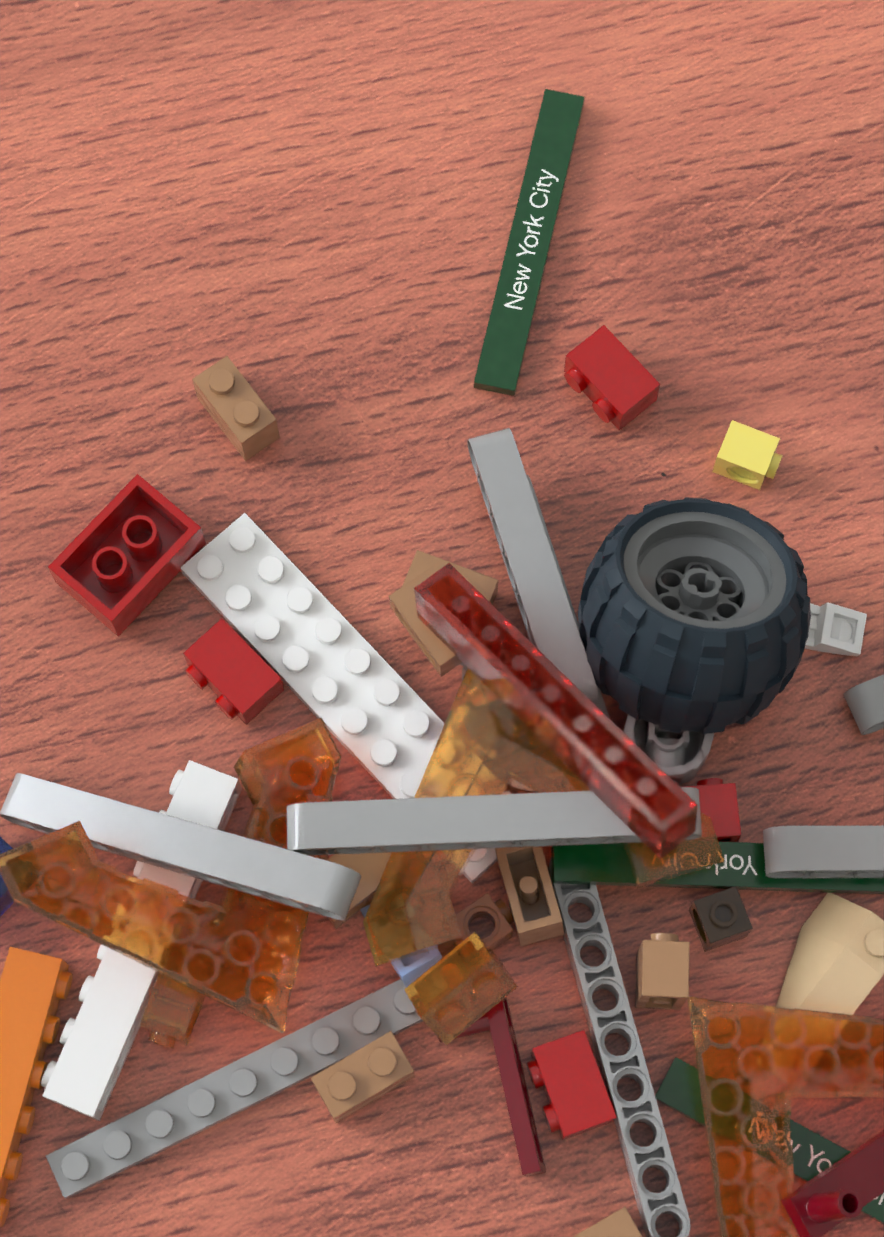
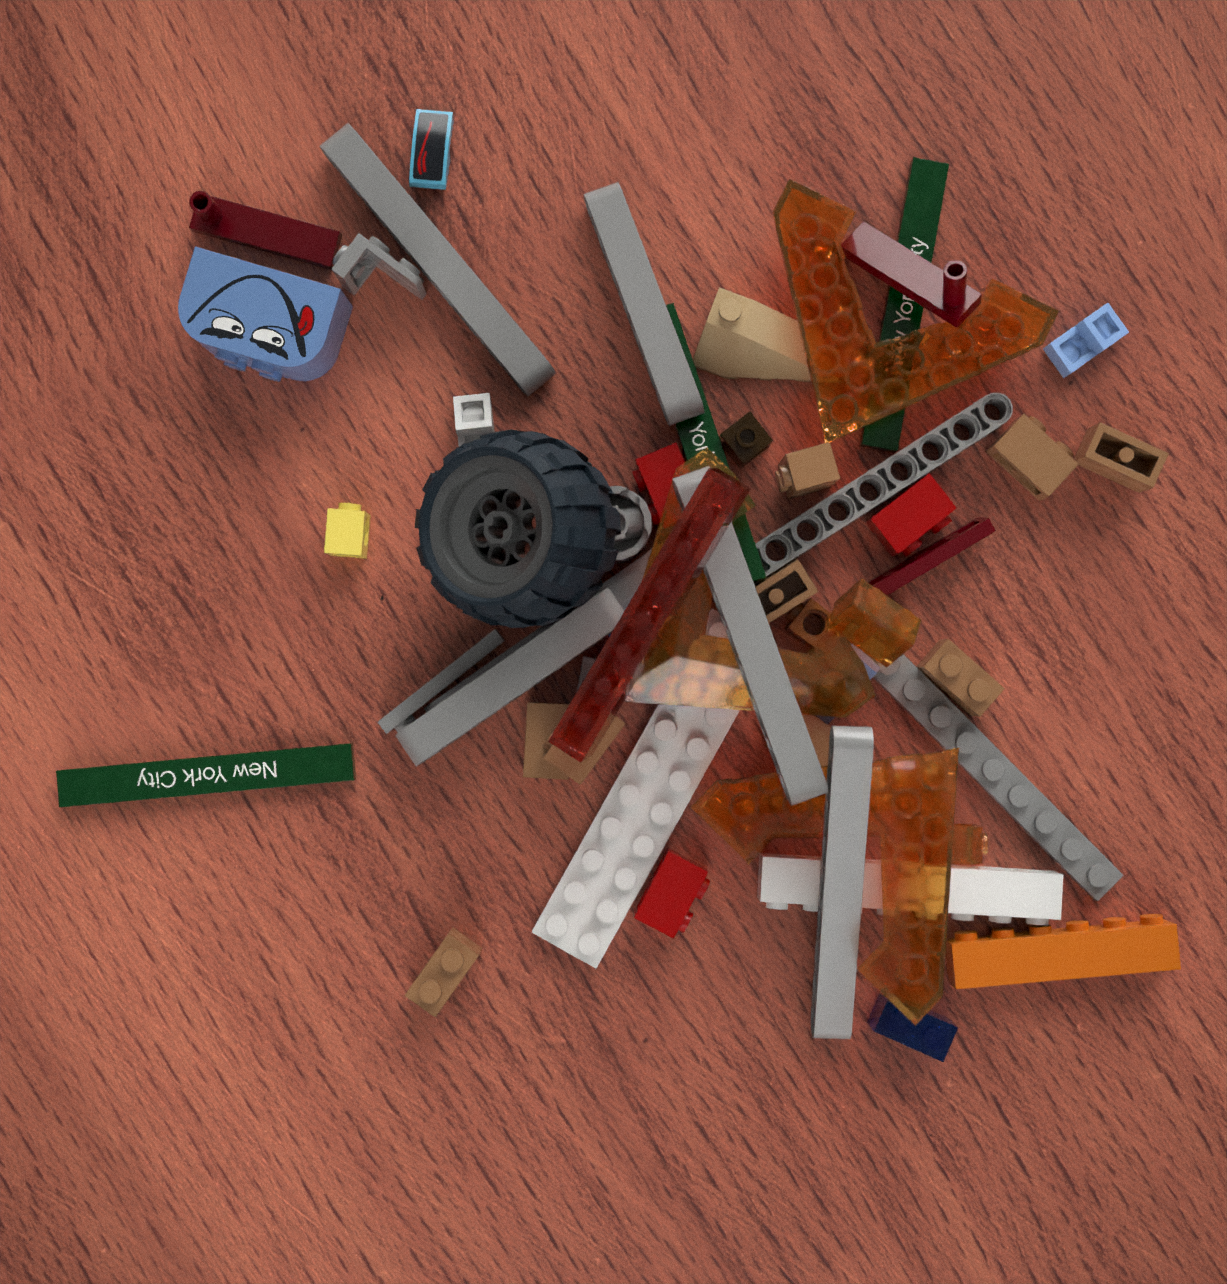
camera: 105 degrees left, 15 degrees up
(127, 555) = (604, 1016): red brick -> none
(551, 501) = (402, 714): none -> light grey piece
(610, 378) = (314, 666): red brick -> none

